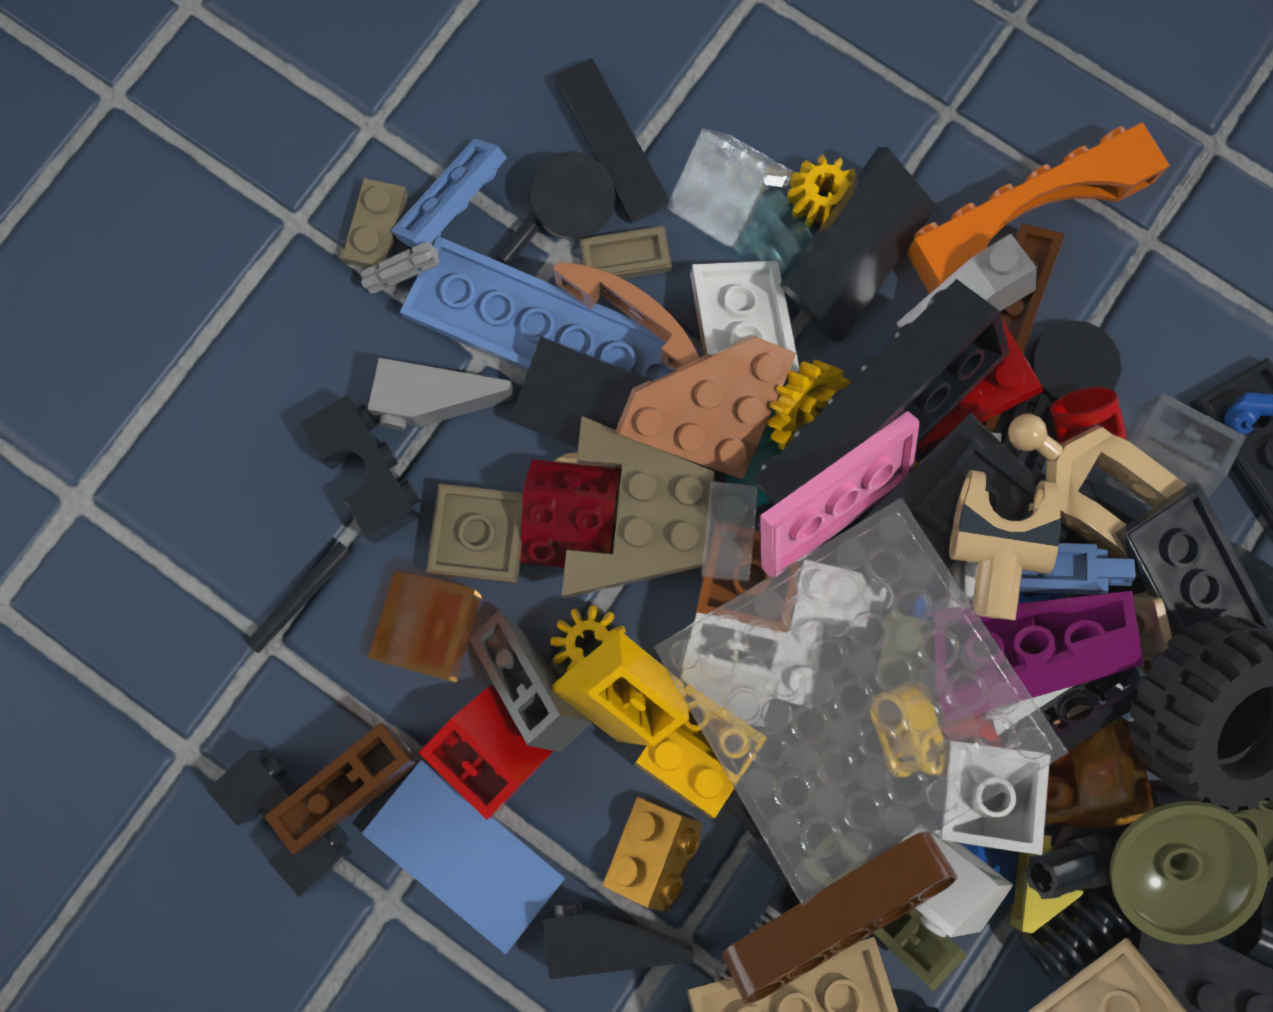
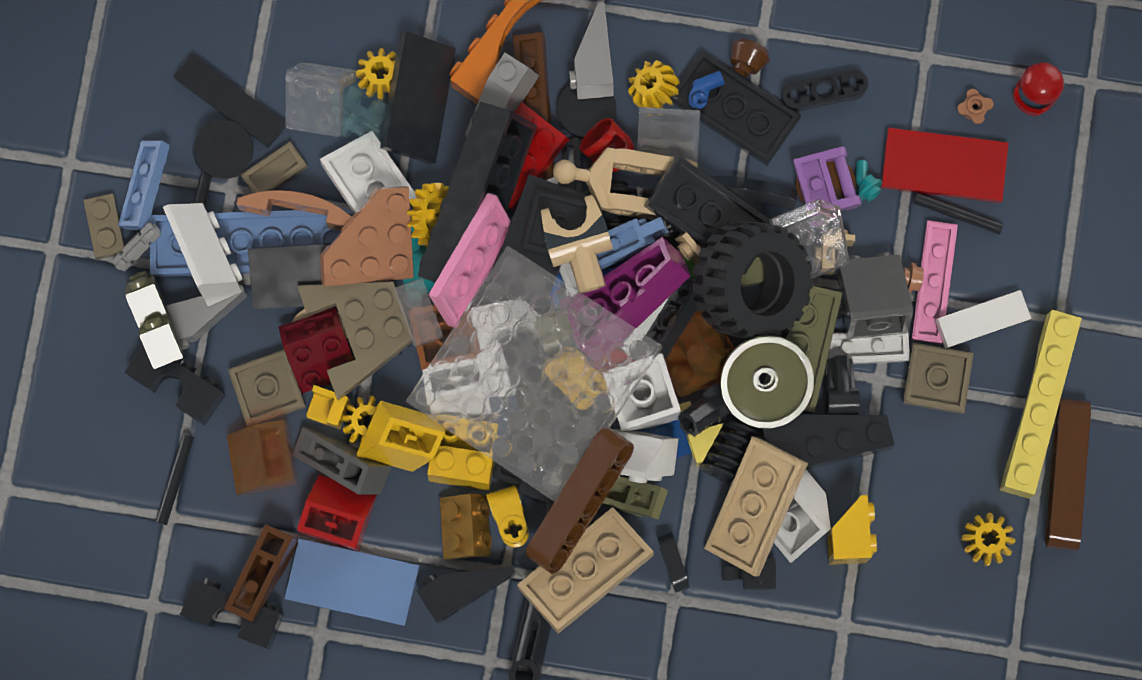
camera: 25 degrees left, 0 degrees up
(365, 389) = (153, 319): none -> arch
(478, 310) = (204, 251): none -> white slope
(543, 599) = (326, 407): none -> yellow panel
(723, 861) = (508, 512): none -> yellow piece
(1119, 309) = (593, 61): none -> light grey slope
(1186, 373) = (653, 85): none -> yellow gear

